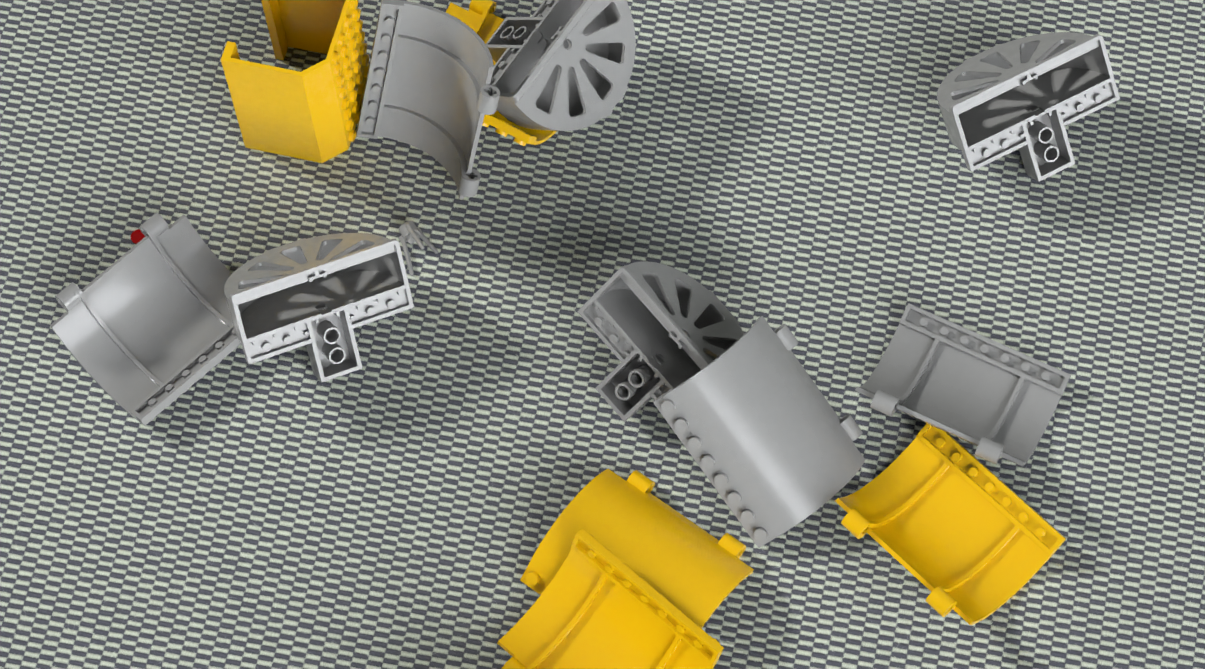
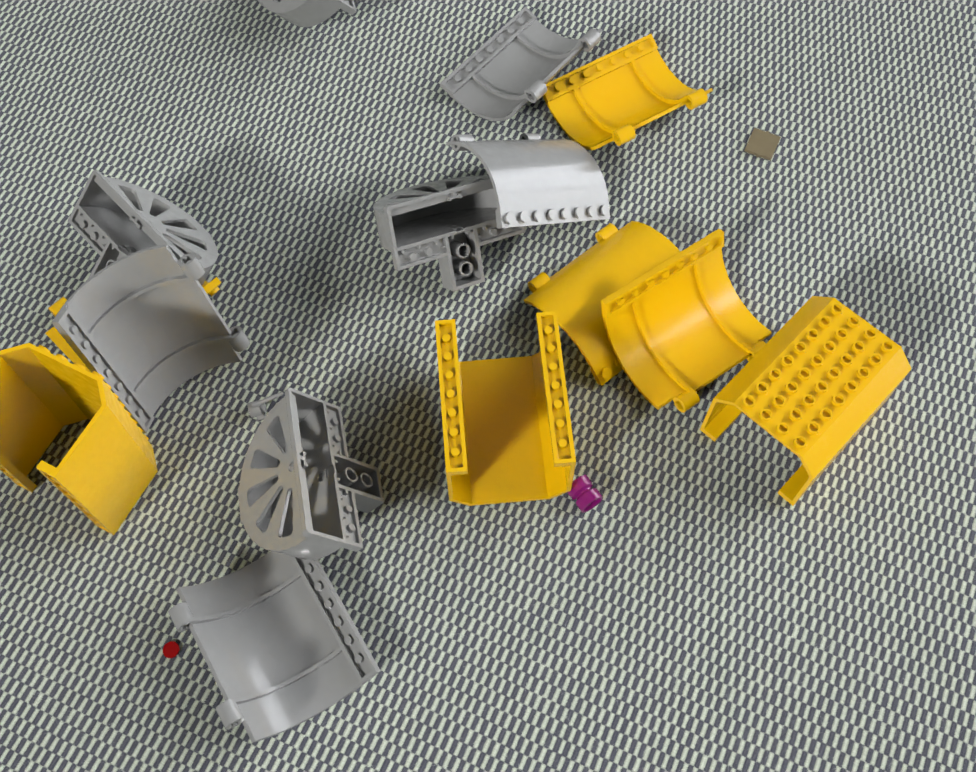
camera: 80 degrees left, 0 degrees up
(375, 584) = (586, 496): none -> magenta wheel
(435, 460) = (505, 421): none -> yellow panel

